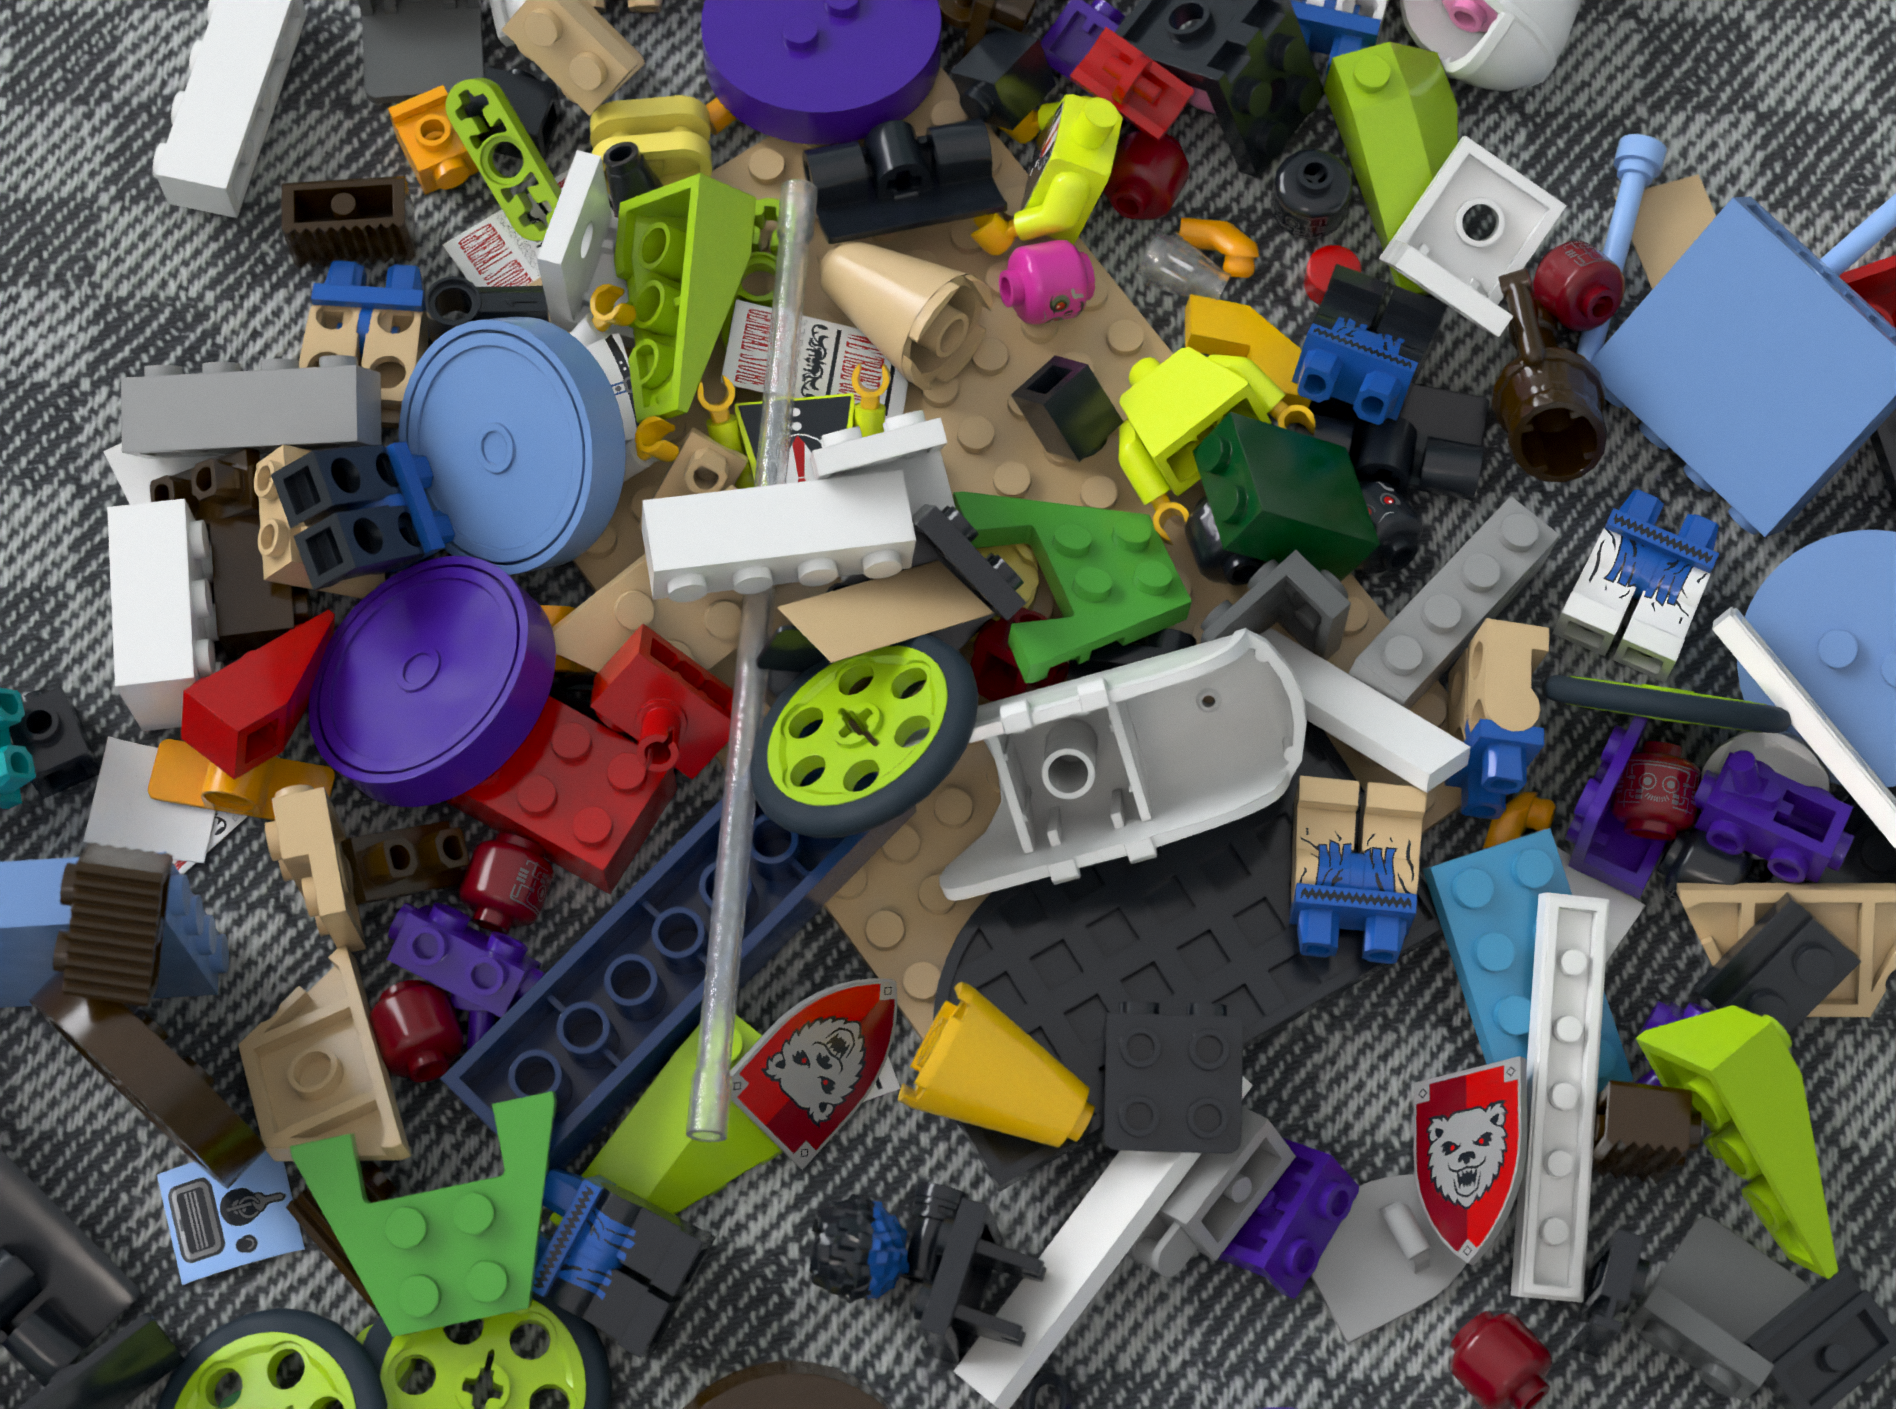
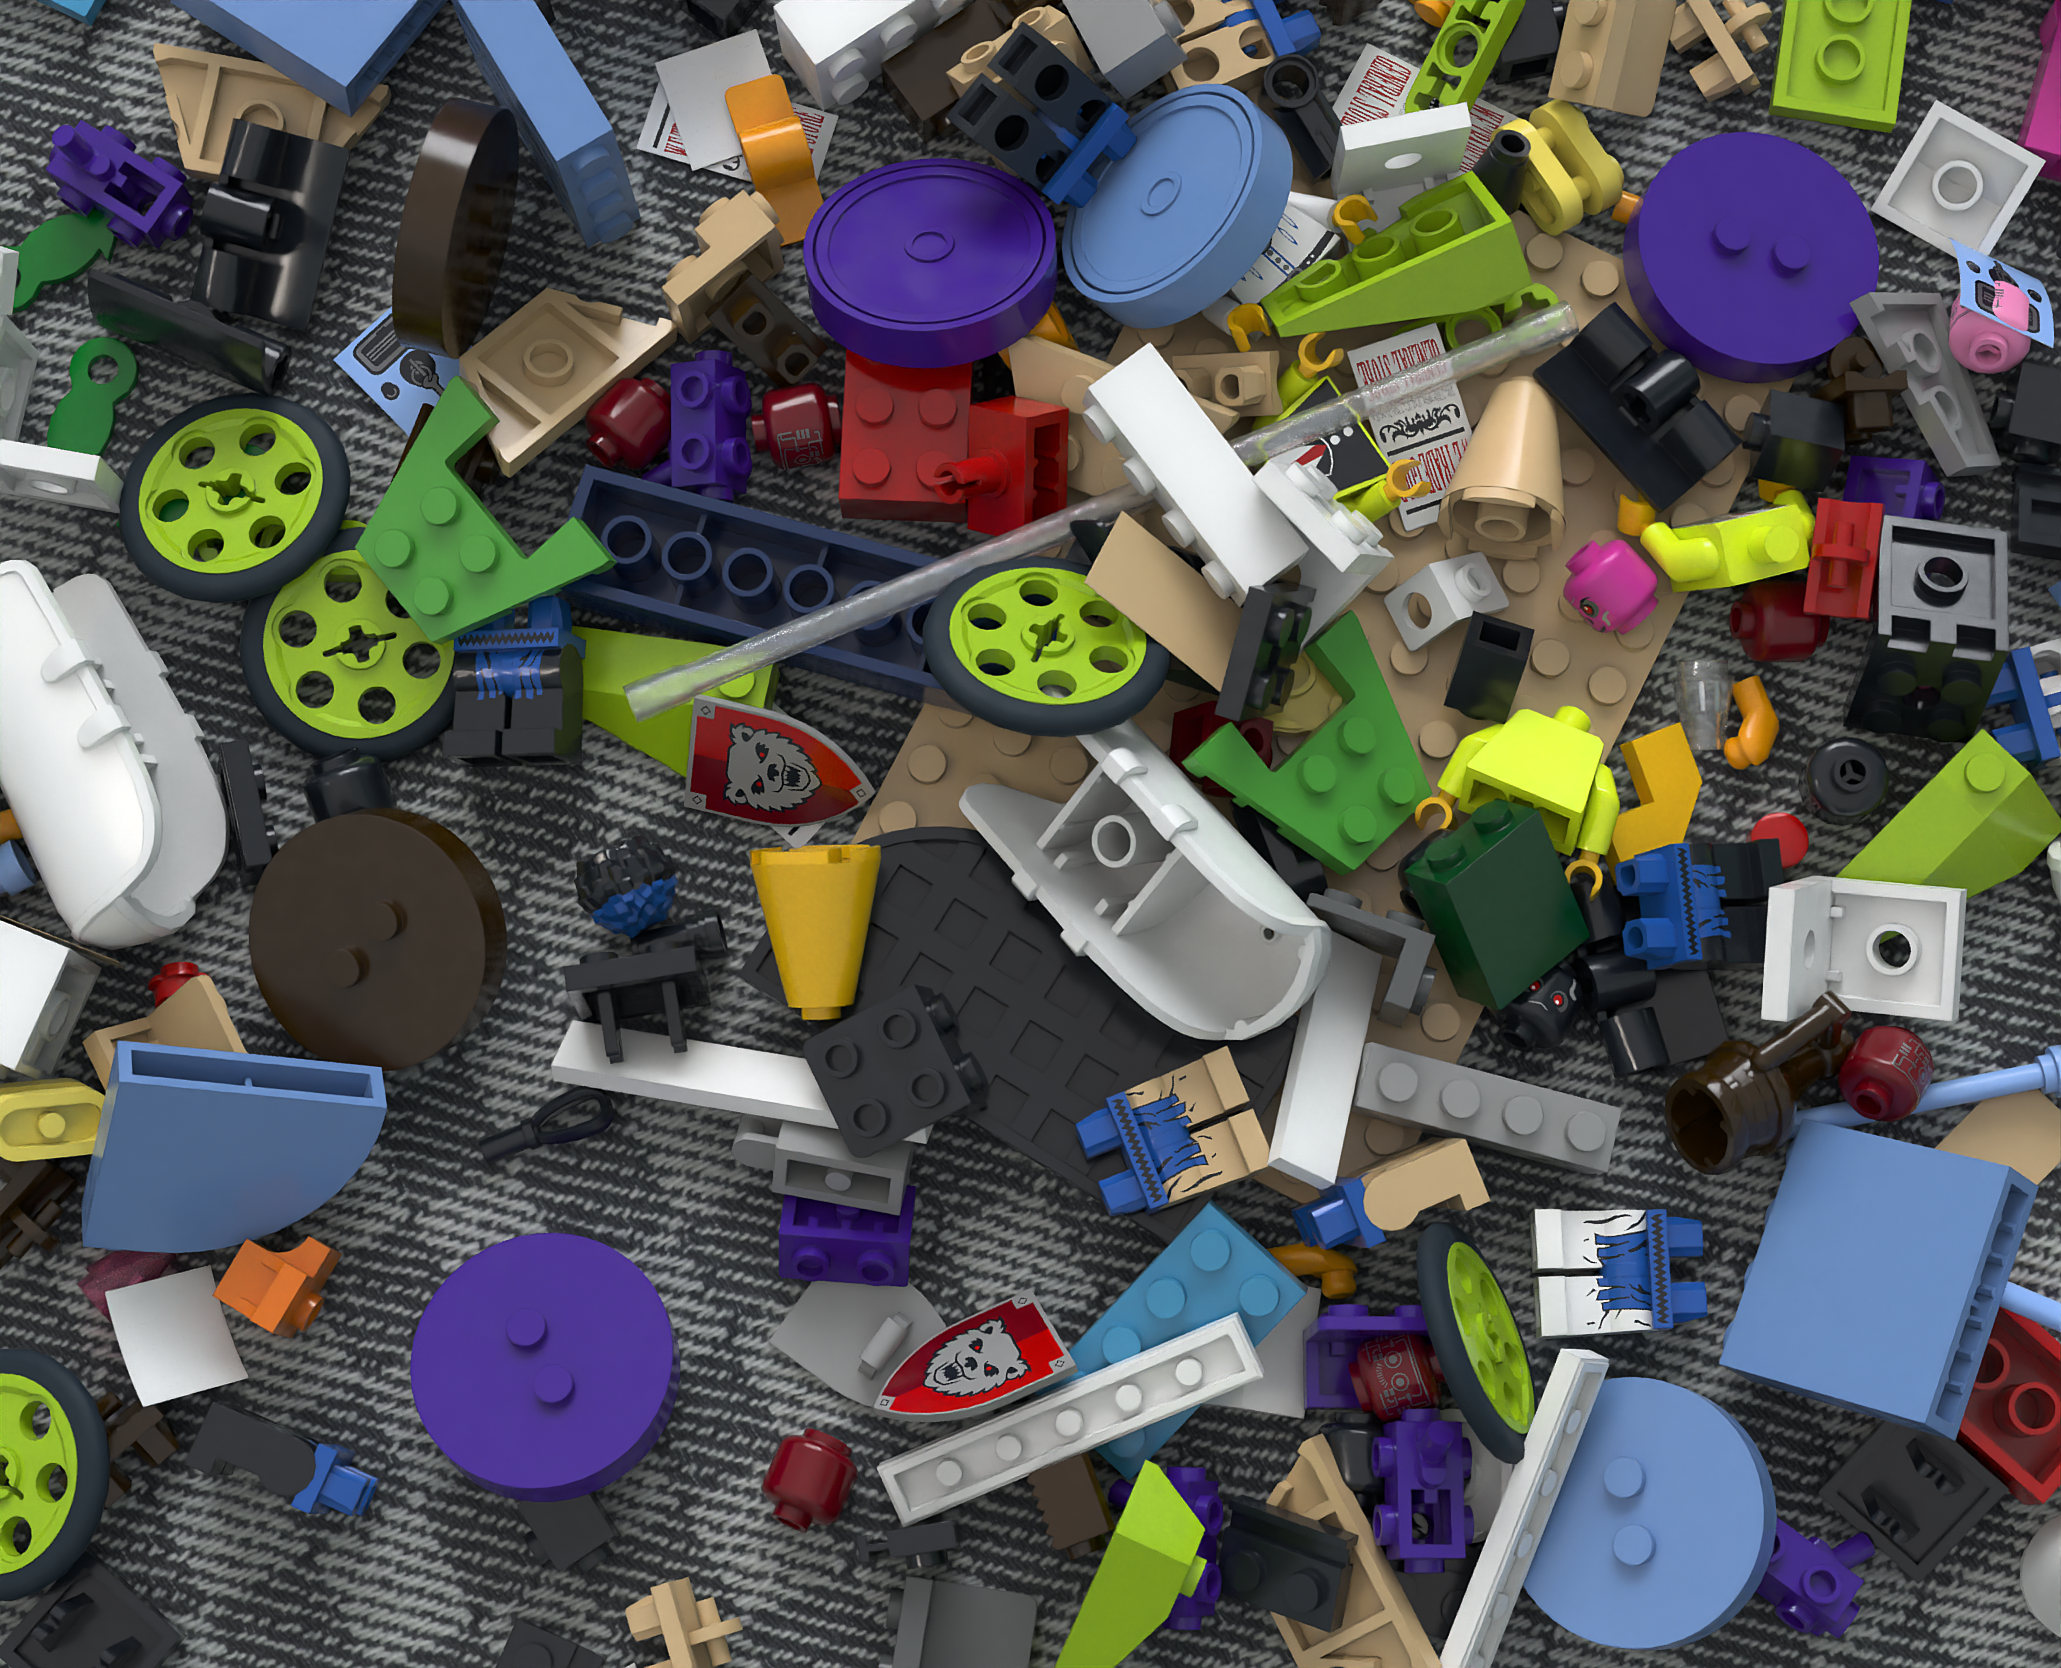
camera: 65 degrees right, 10 degrees up
(114, 924) = (521, 124): dark brown brick -> none
(256, 702) = (835, 131): red slope -> none
(984, 403) = (1453, 591): none -> white bracket

